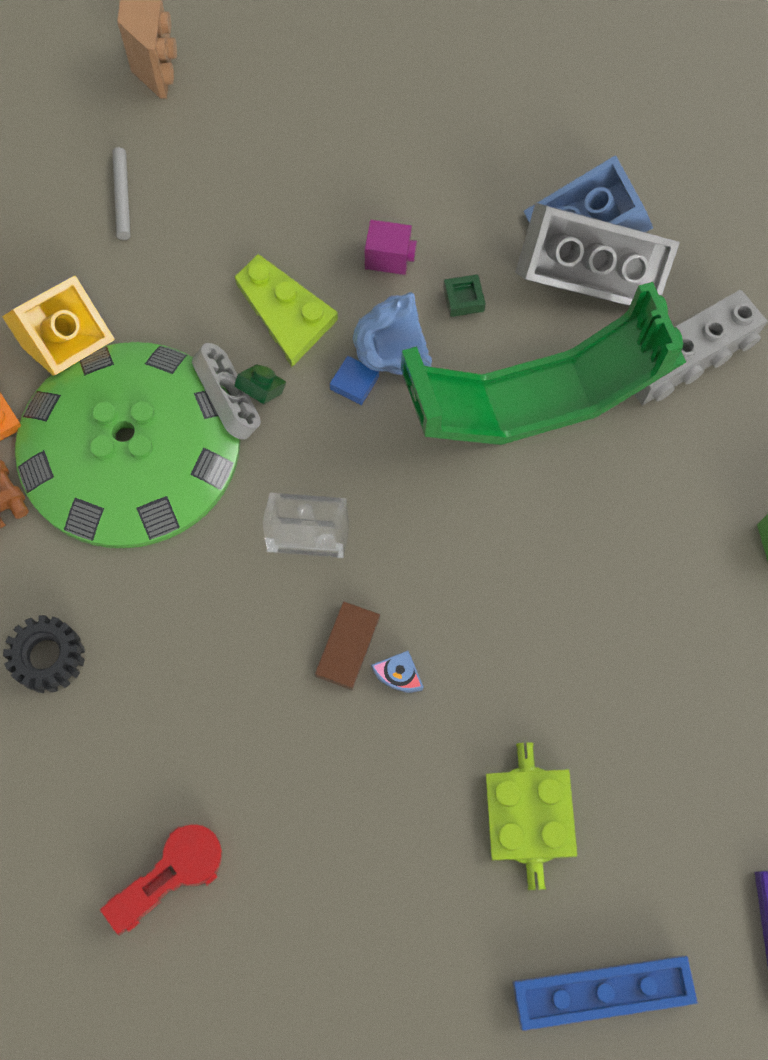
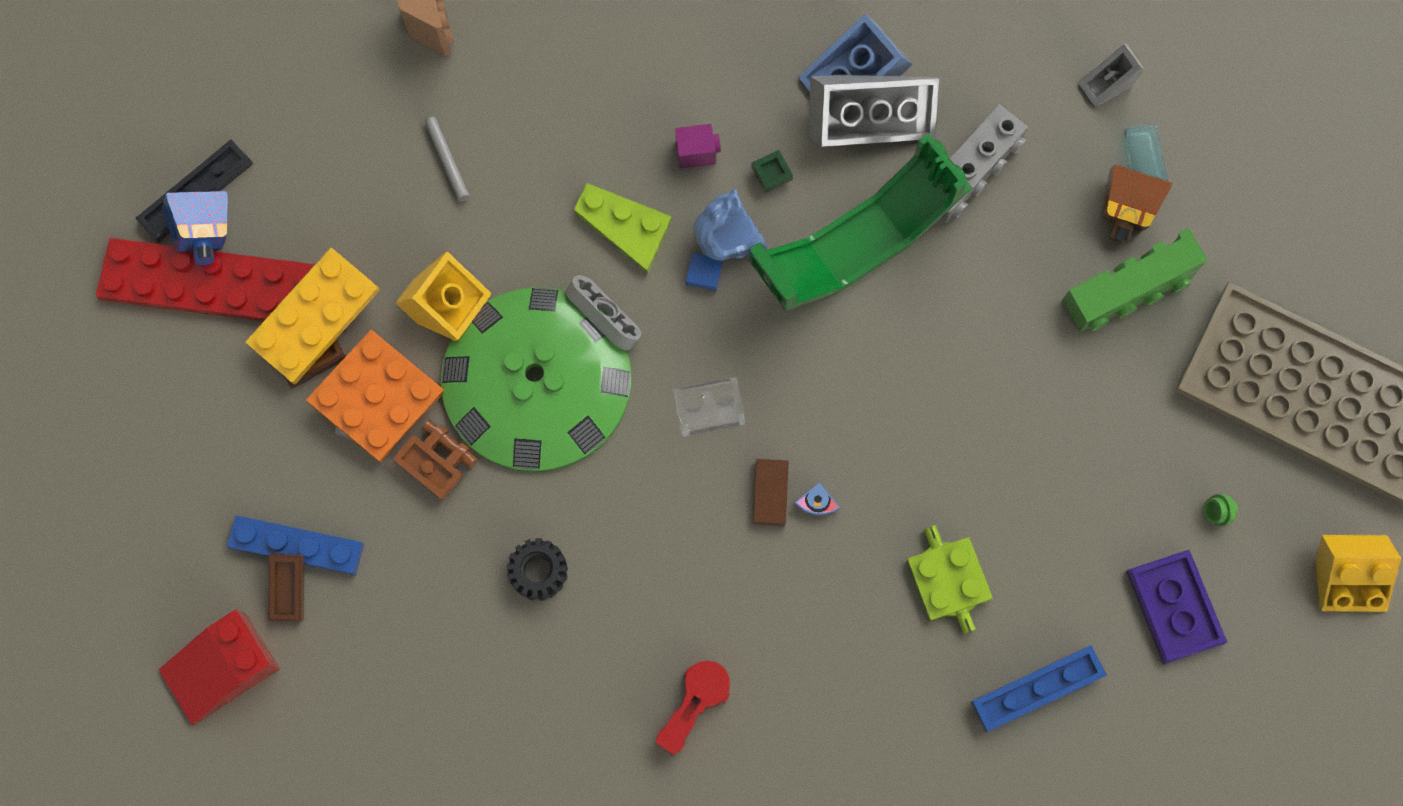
camera: 15 degrees left, 5 degrees up
(260, 383) = (629, 298): dark green plate -> none

